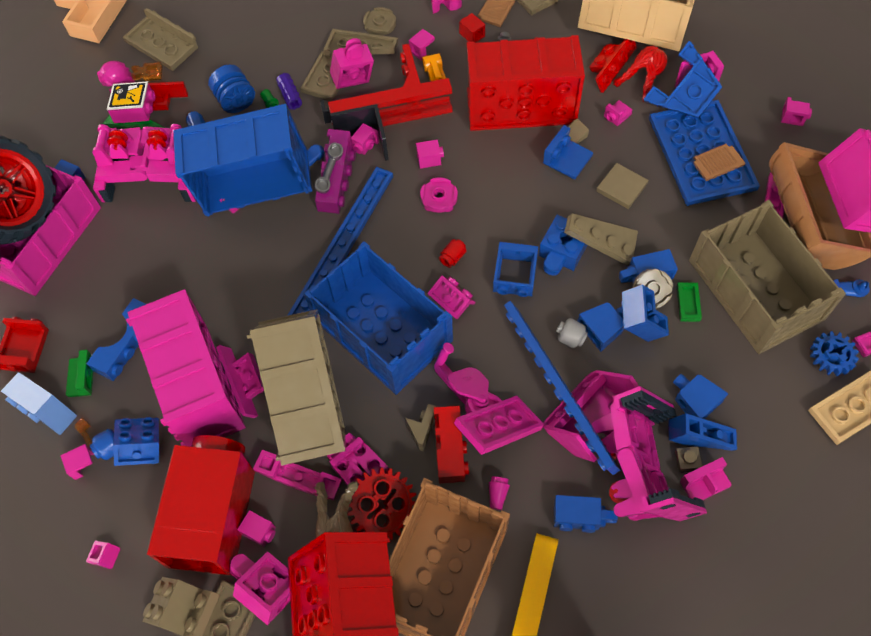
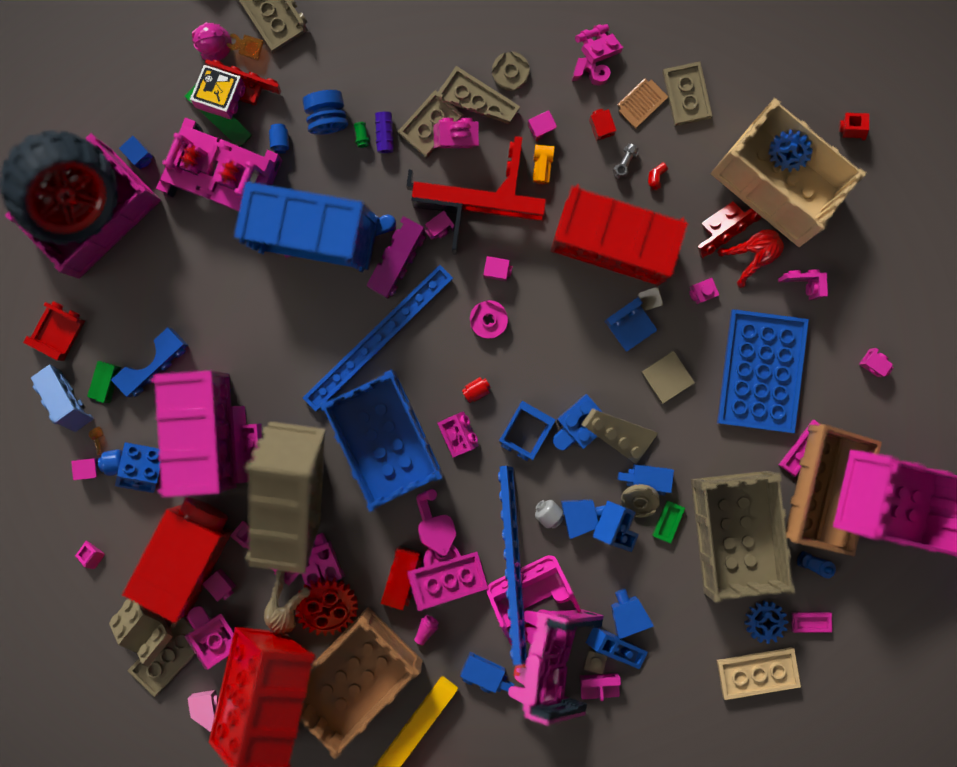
camera: 20 degrees right, 25 degrees up
(335, 153) = (377, 276): flat silver bar -> none
(421, 430) = (381, 553): dark tan slope -> none
(693, 92) = (786, 308): blue wing -> none
(718, 162) = (769, 391): medium nougat window -> none

